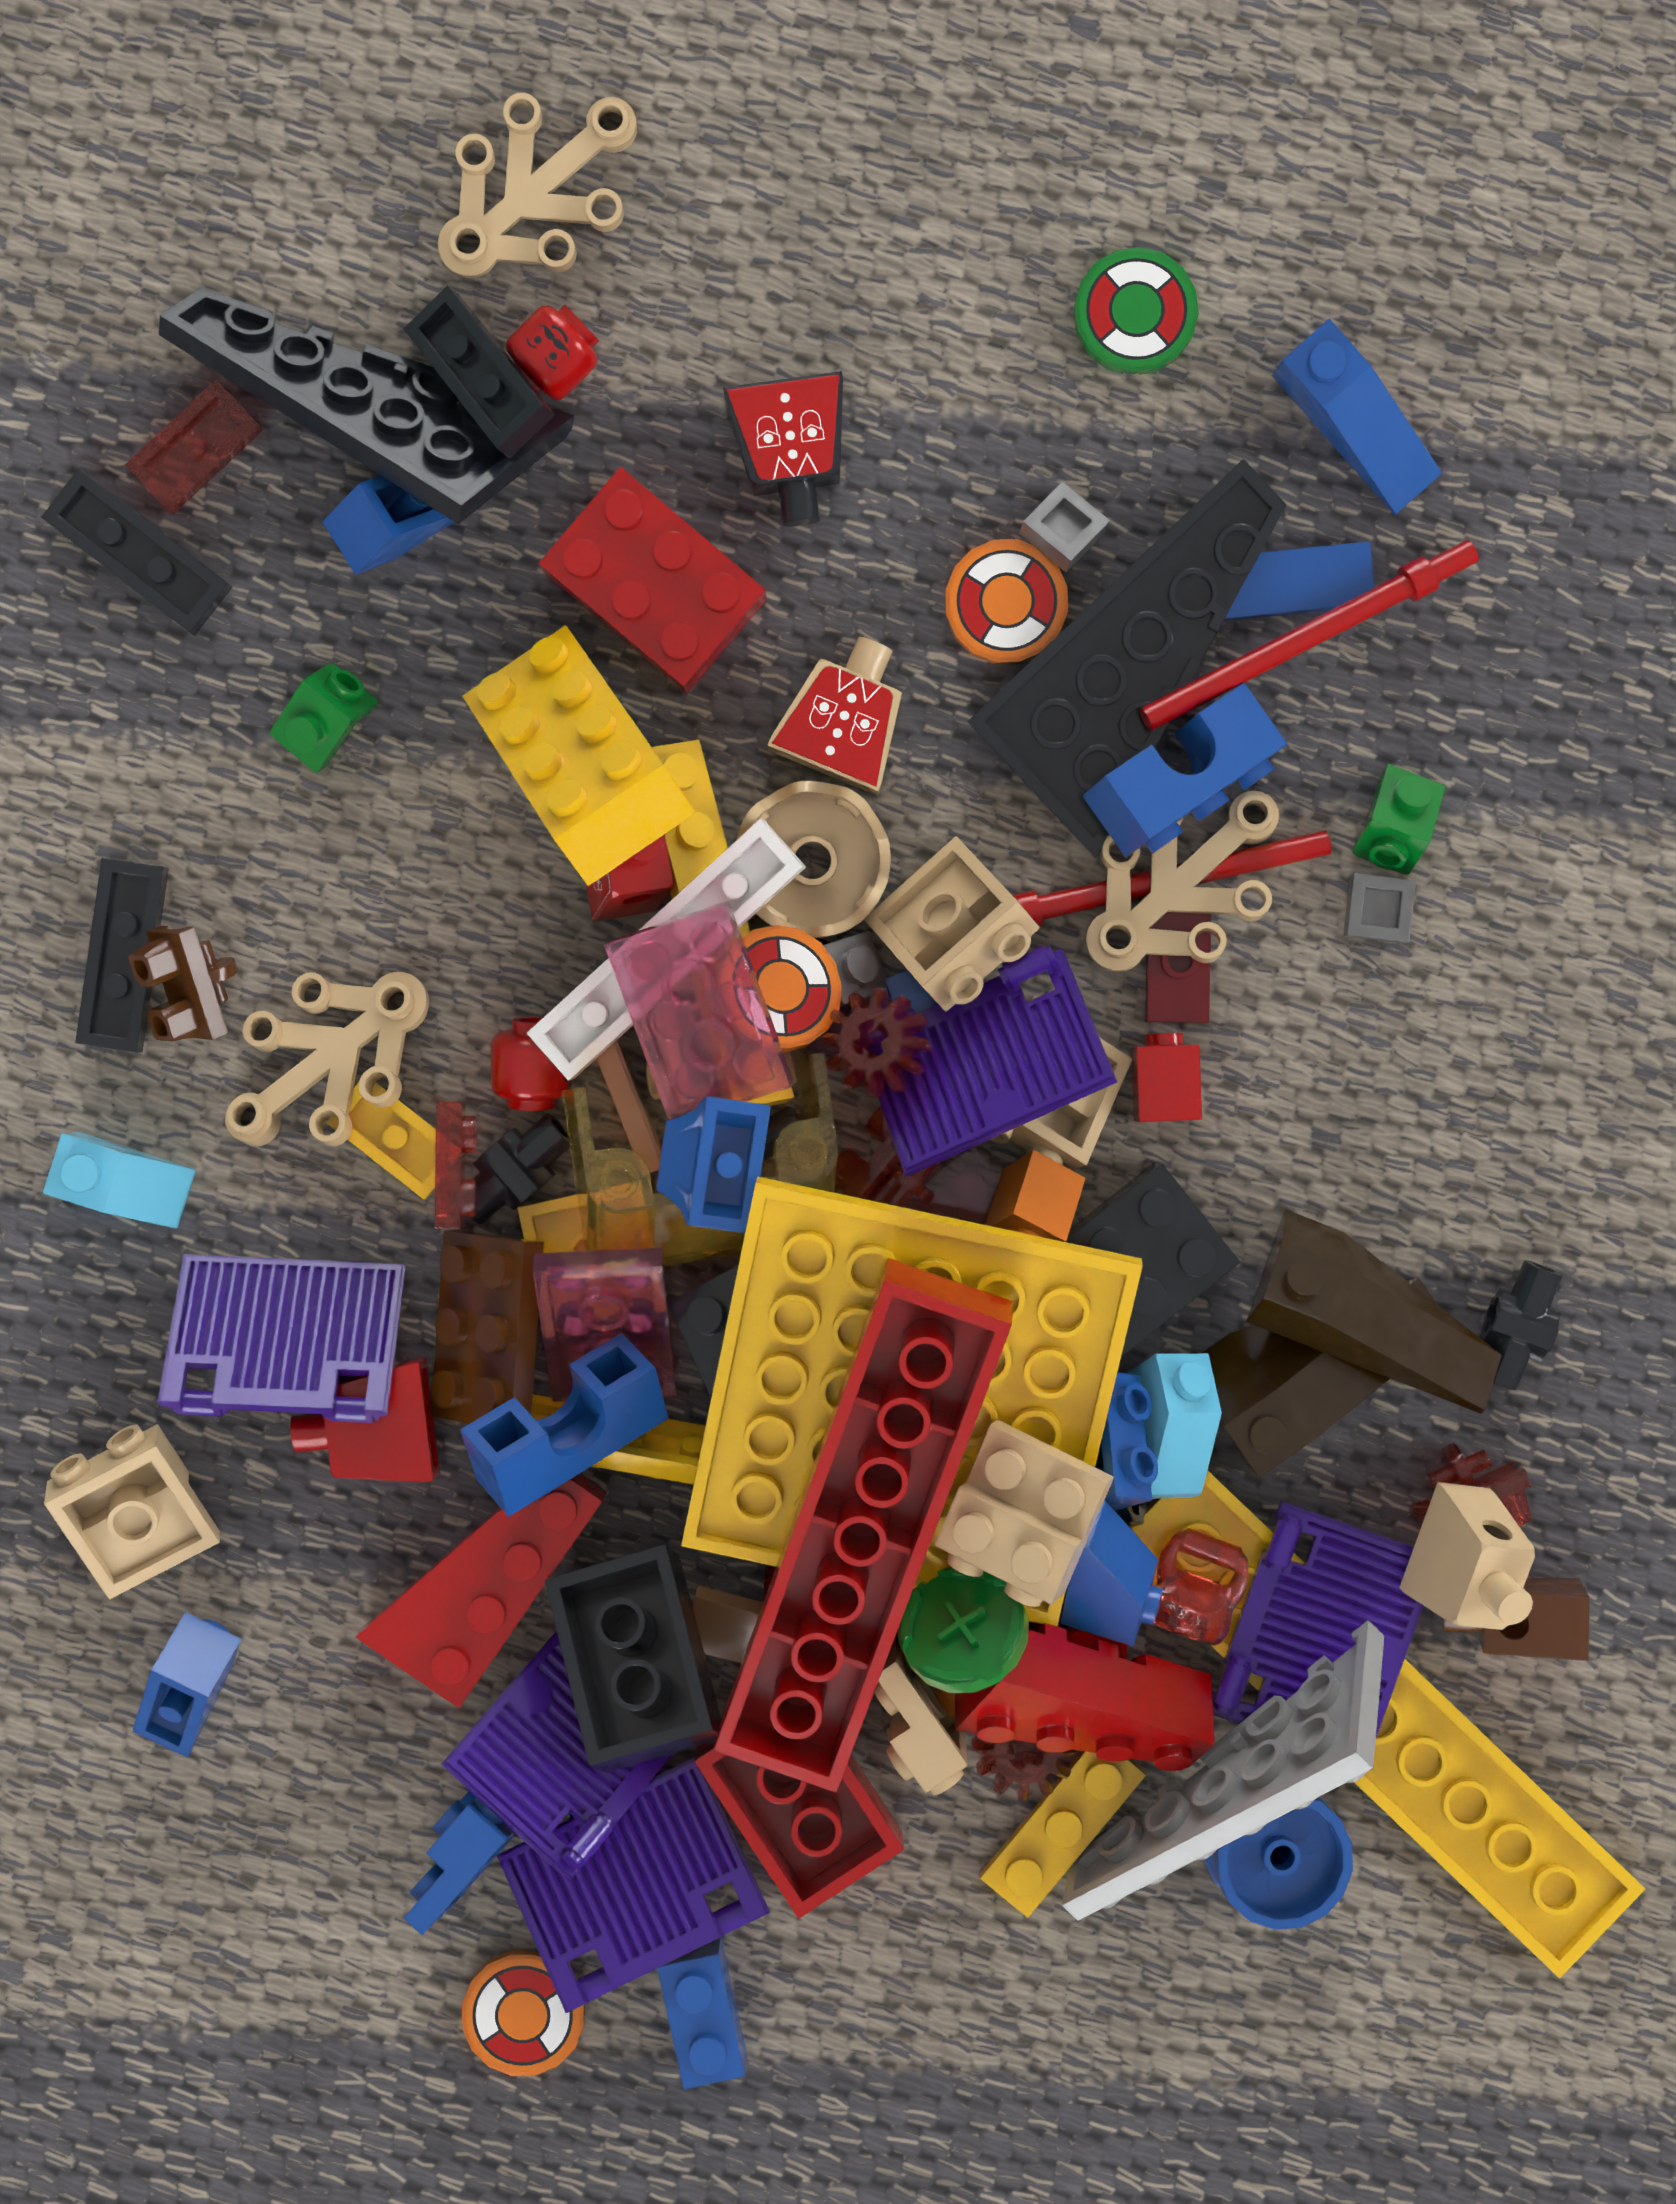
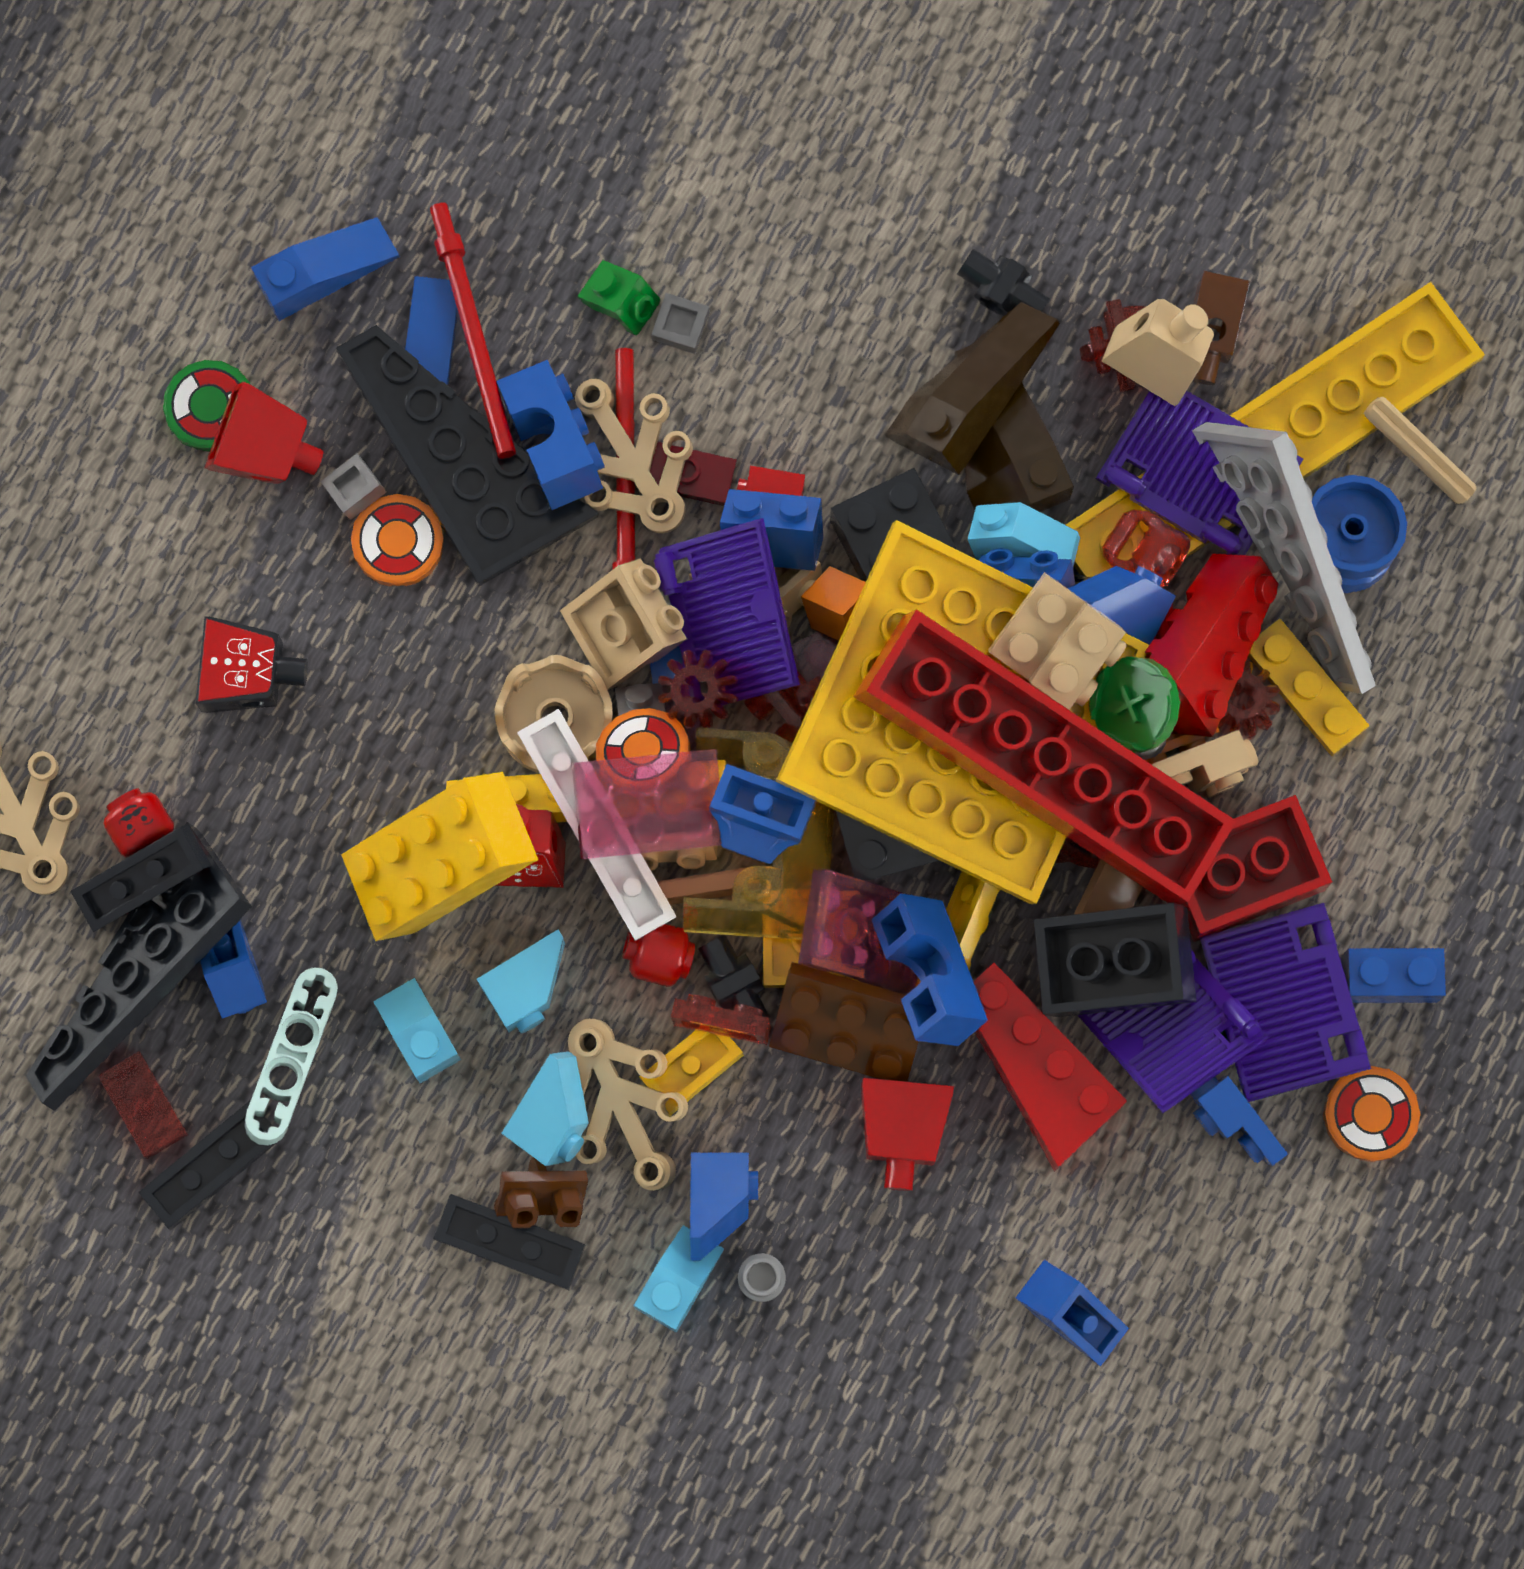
camera: 80 degrees left, 10 degrees down
(129, 1509) = (929, 1324): tan plate -> none
(148, 1283) = (761, 1277): none -> light grey plate
(228, 1210) = (718, 1198): none -> blue slope
(283, 1335) = (821, 1177): dark purple window -> none
(288, 973) = (551, 1113): none -> medium azure slope
(295, 612) = (295, 1057): none -> light aqua beam
(322, 715) = (365, 1053): green bracket -> none
(364, 775) = (417, 1030): none -> medium azure slope
(451, 900) = (525, 983): none -> medium azure slope
(653, 580) = (324, 786): red brick -> none
(843, 719) = (457, 671): red torso -> none
(1099, 389) = (261, 439): none -> red torso
(1126, 1116) = (790, 521): none -> blue brick
(1410, 1917) = (1420, 450): none -> tan axle

